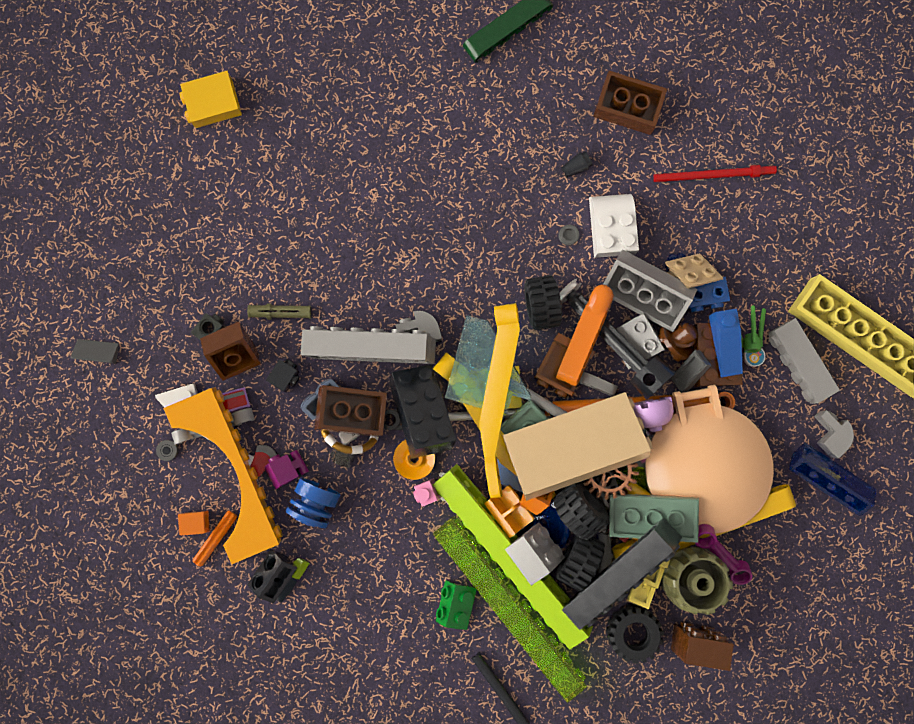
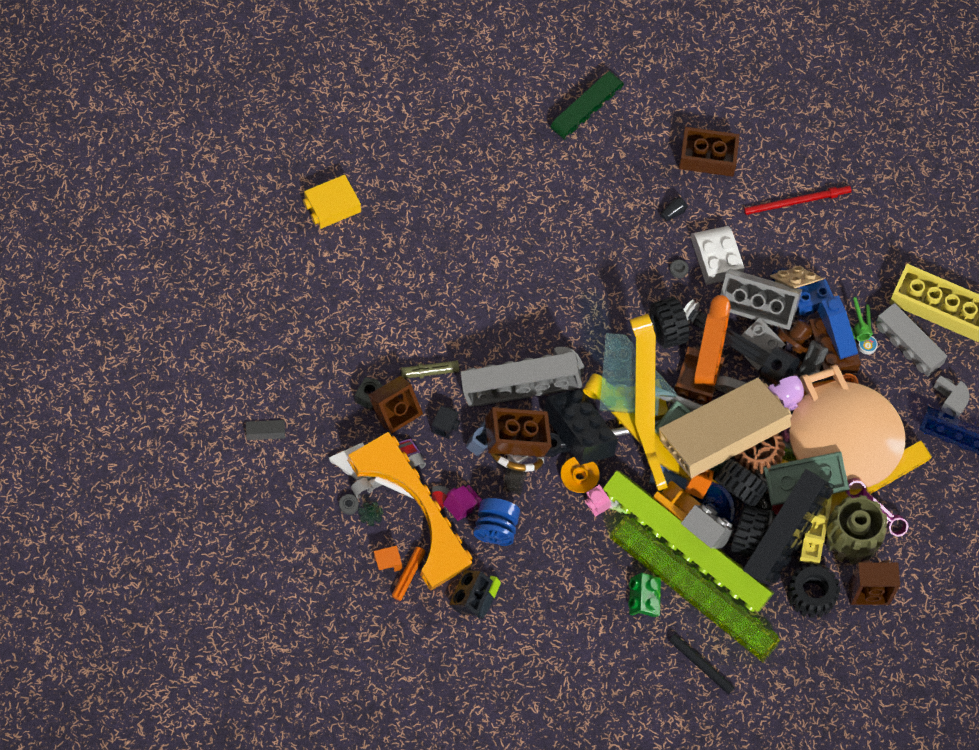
camera: 15 degrees left, 20 degrees down
(188, 463) = (370, 513): none -> clear green plant

